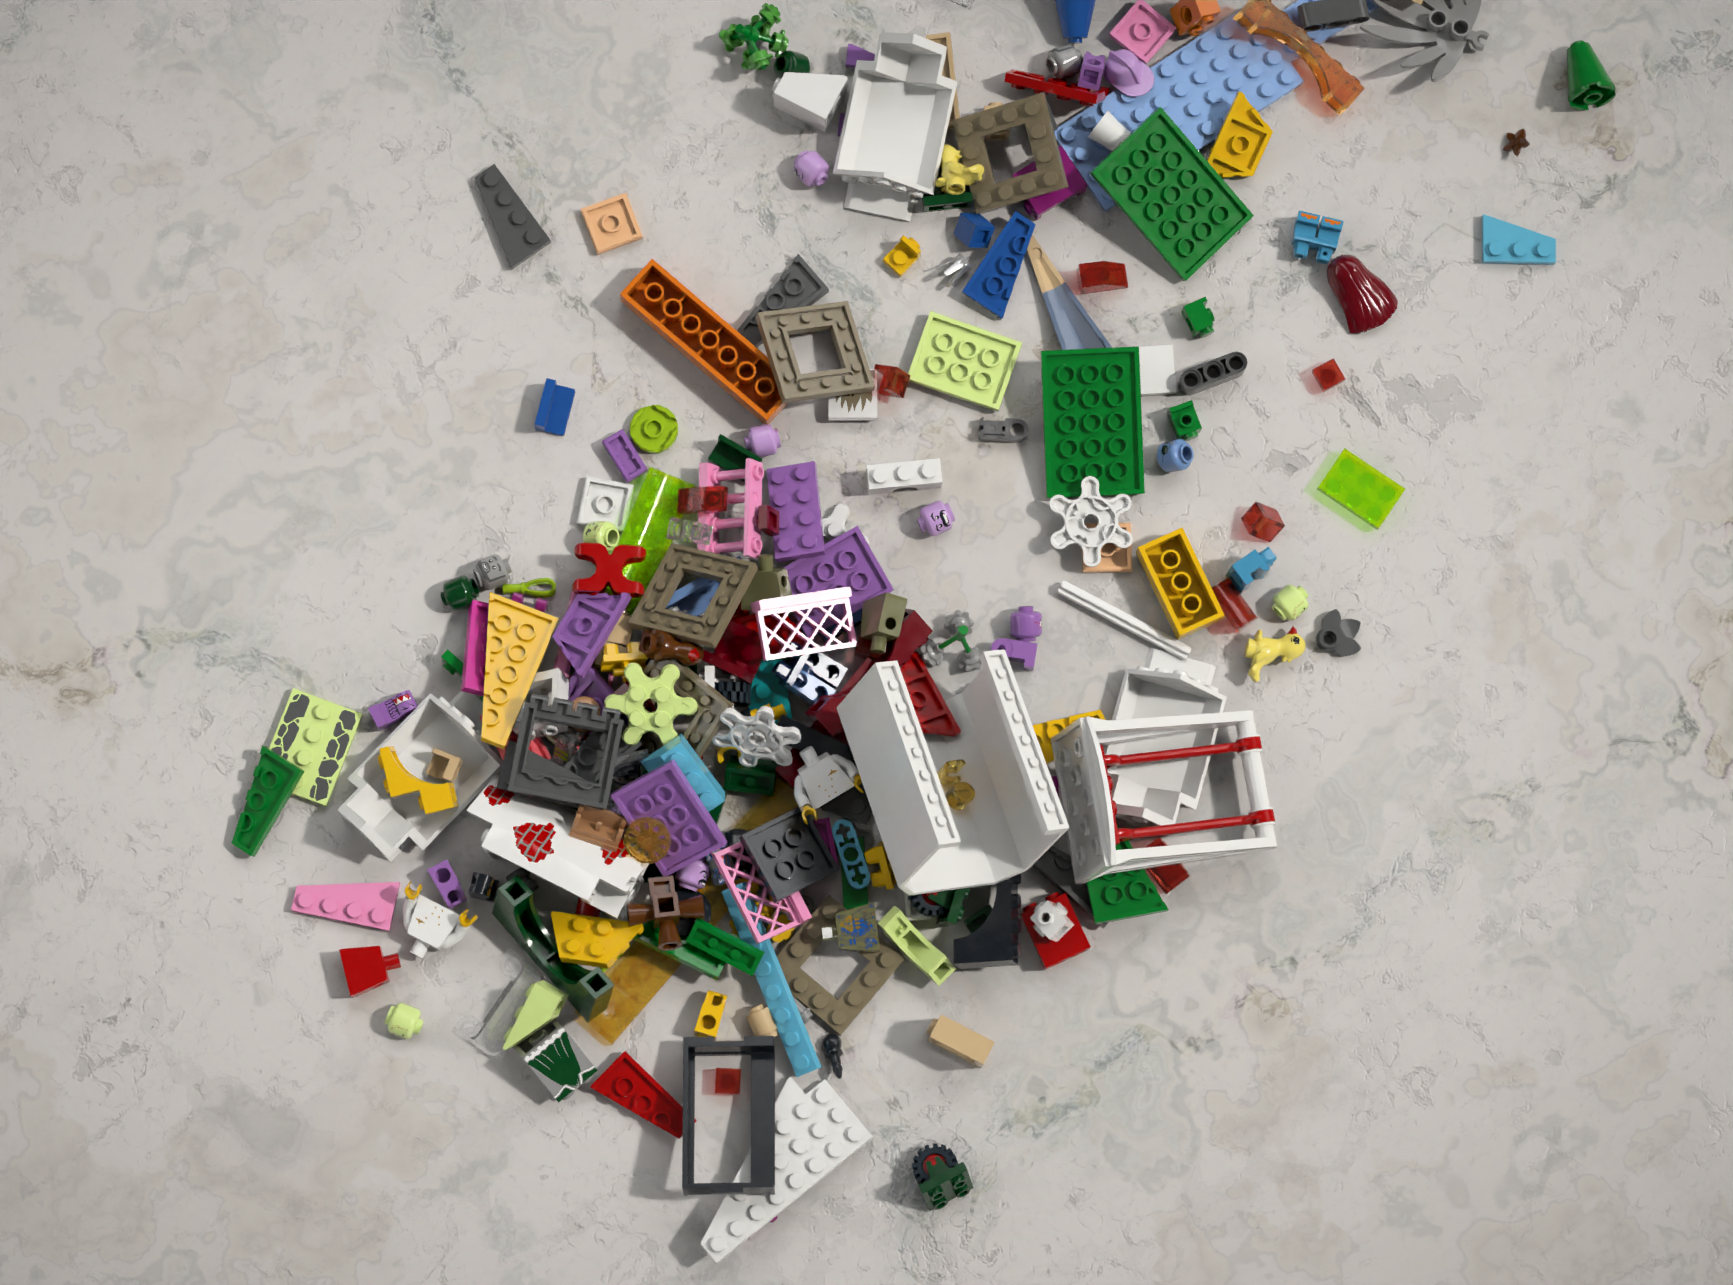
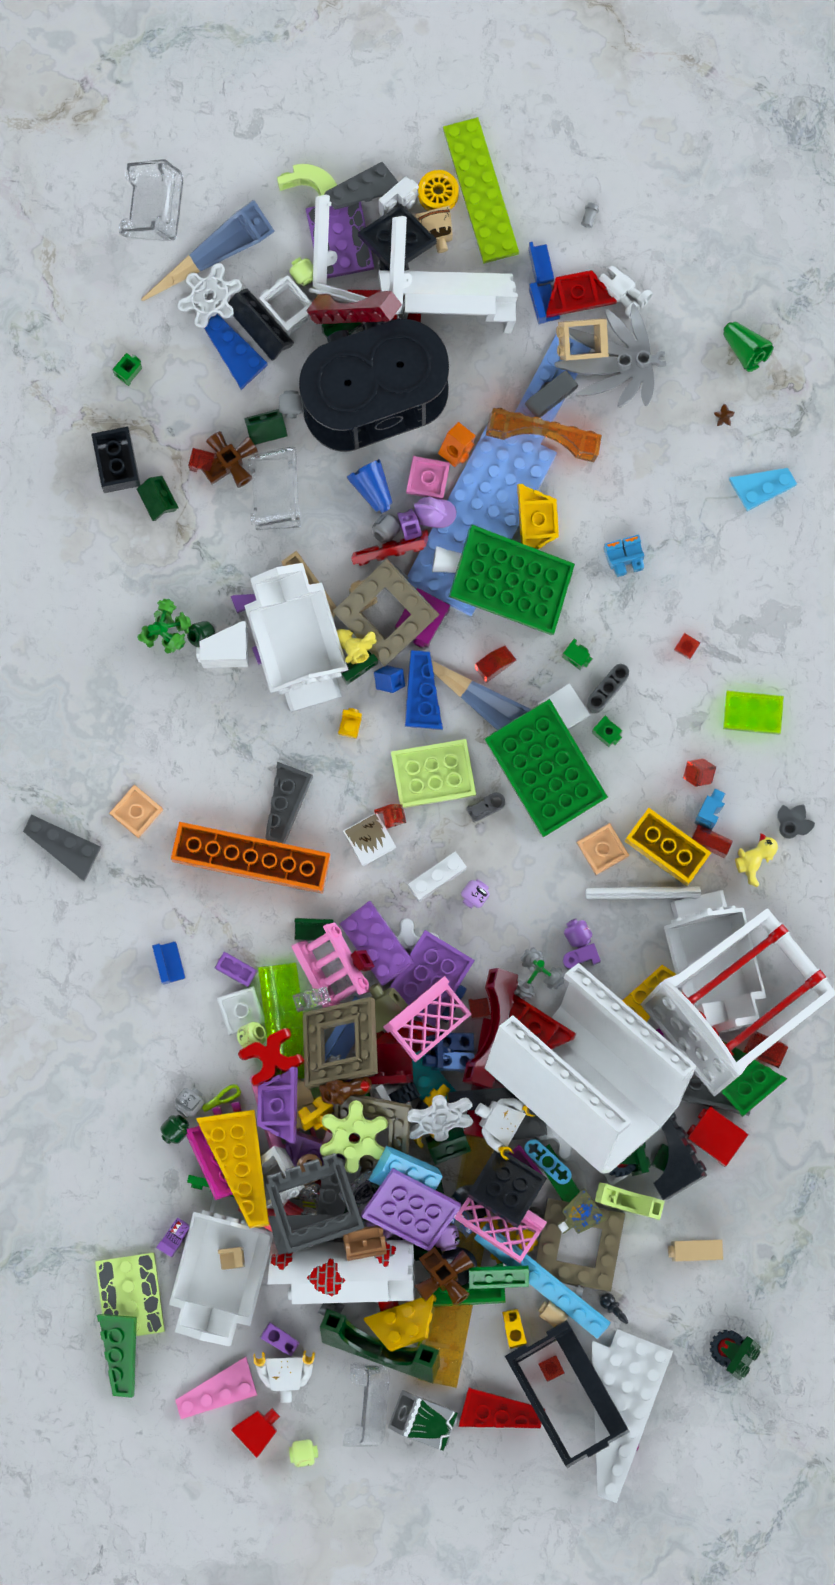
camera: 20 degrees left, 0 degrees up
(401, 782) = (208, 1286): yellow arch -> none
(483, 887) = (306, 1328): black leg -> none
(540, 1008) = (395, 1390): yellowish green slope -> none
(647, 840) = (404, 1233): clear yellow wheel -> none
(654, 429) = (245, 939): lime tile -> none
(702, 499) = (308, 971): clear red slope -> none
(762, 440) = (325, 905): lavender head -> none
(792, 385) = (328, 857): dark tan plate -> none
(811, 168) = (253, 697): lavender head -> none
(882, 620) = (480, 987): torso -> none
(885, 876) = (580, 1163): yellow hips -> none
(959, 793) = (600, 1079): clear yellow leg -> none
(960, 264) = (391, 712): flat silver piece -> none
(1051, 920) = (712, 1132): white brick -> none
(1091, 504) = (569, 837): white plate -> none
(1174, 455) = (614, 759): medium blue head -> none
(1290, 602) = (749, 817): yellowish green head -> none
(1360, 293) = (677, 577): dark red hair -> none

